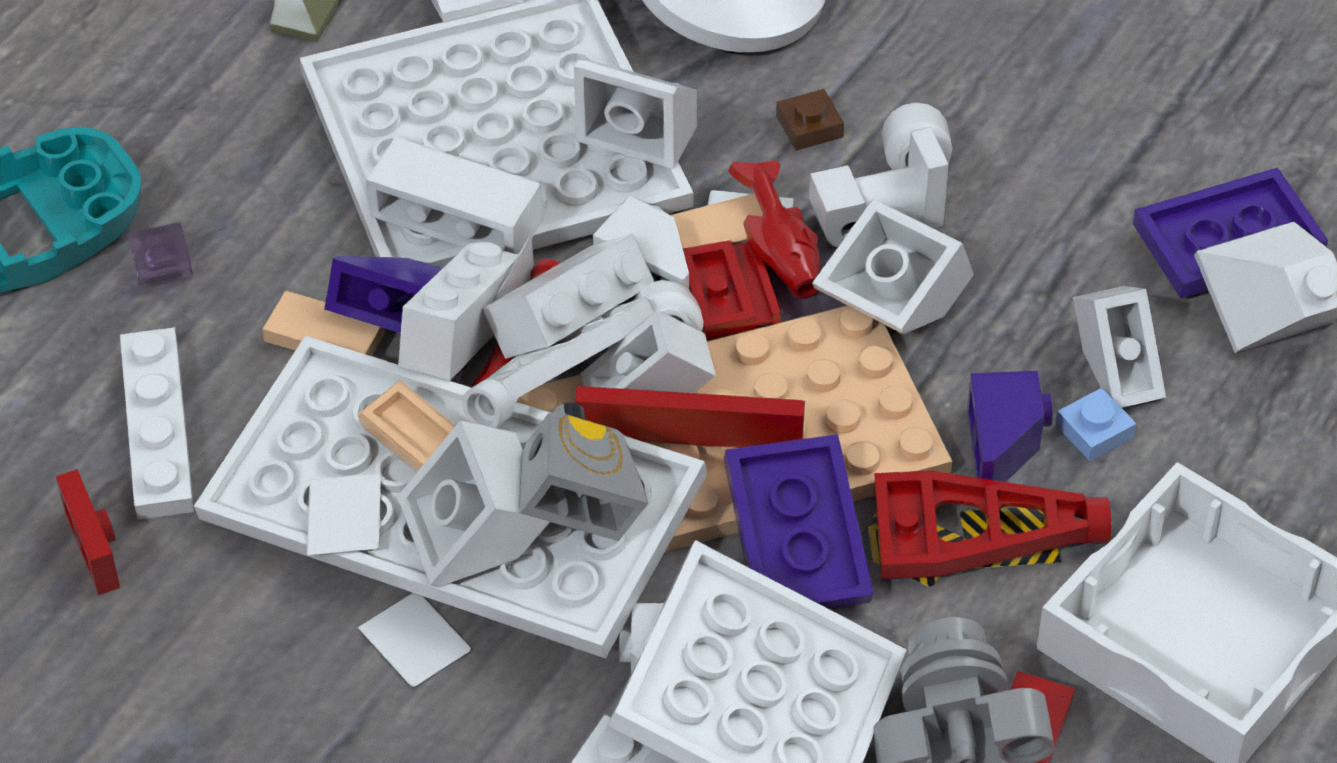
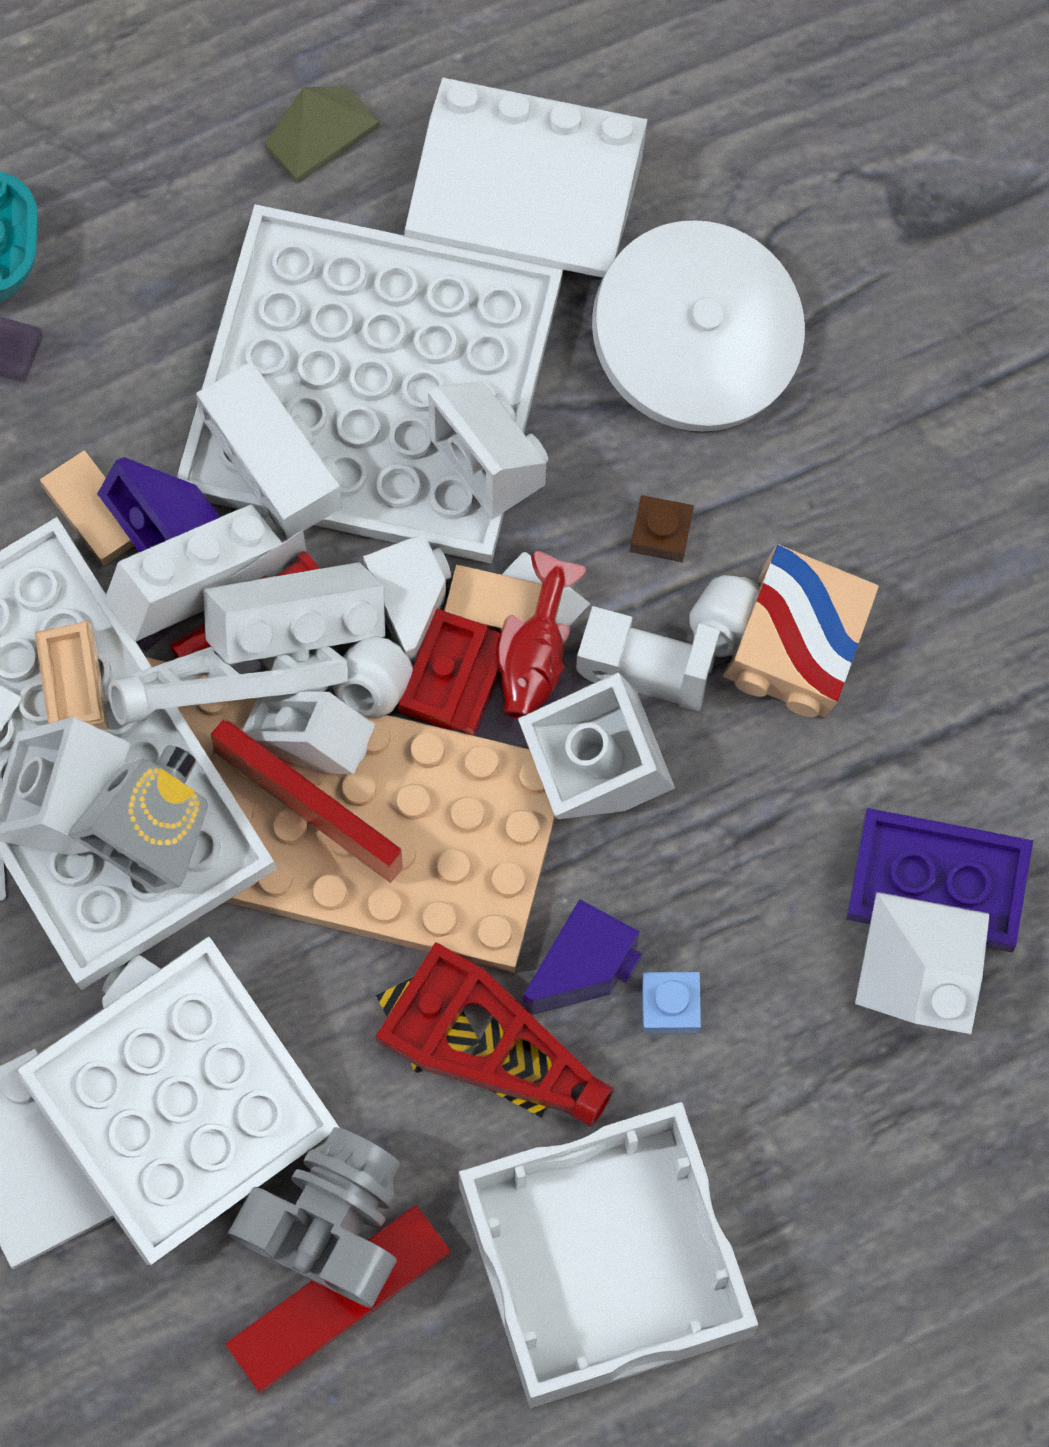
camera: 30 degrees right, 20 degrees up
(800, 519) = (330, 956): dark purple plate -> none
(987, 121) = (801, 633): none -> panel
(1121, 344) = (745, 940): white slope -> none

